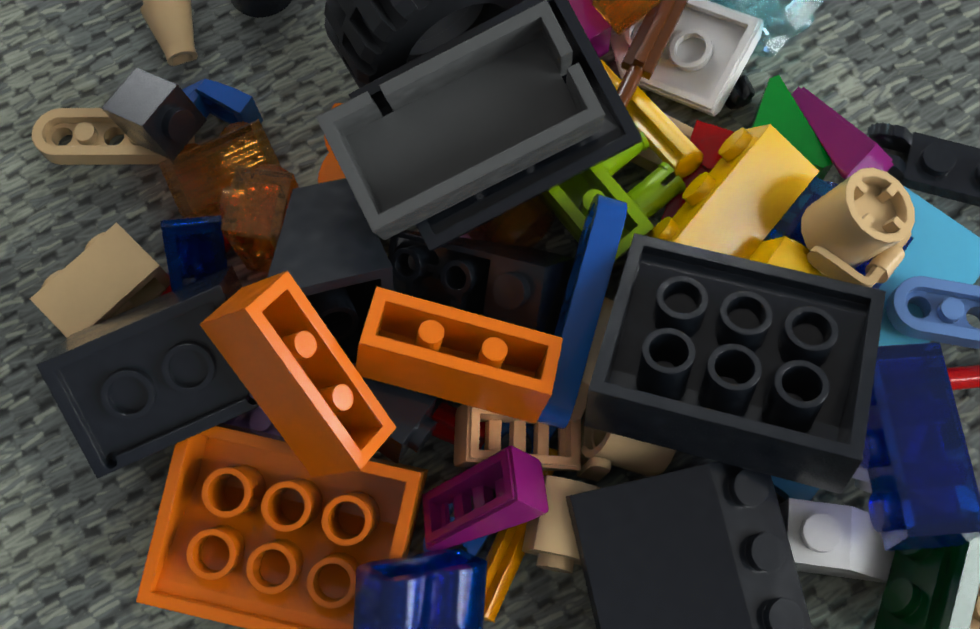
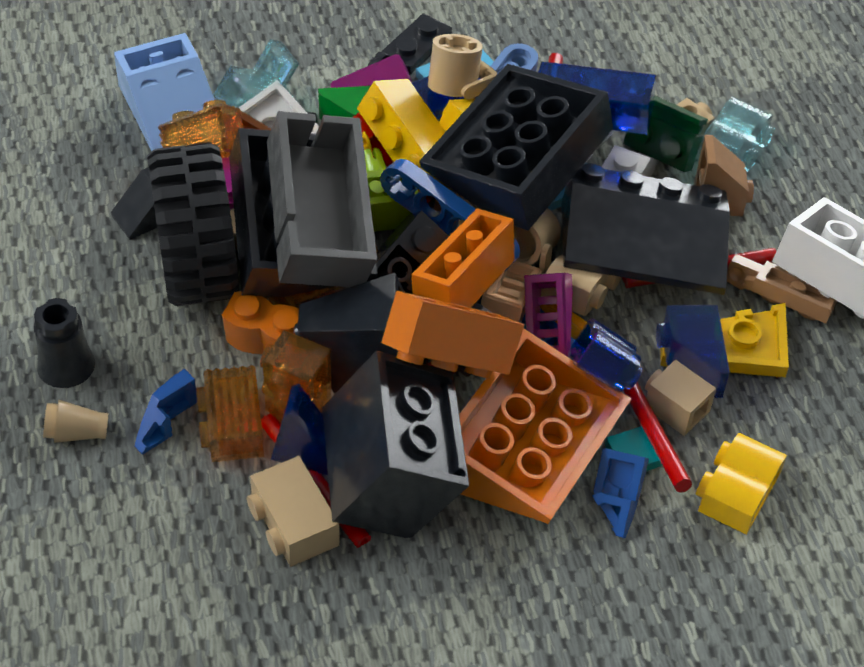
camera: 80 degrees left, 20 degrees down
(90, 140) = (155, 468): tan plate -> none
(154, 113) = (175, 422): black brick -> none

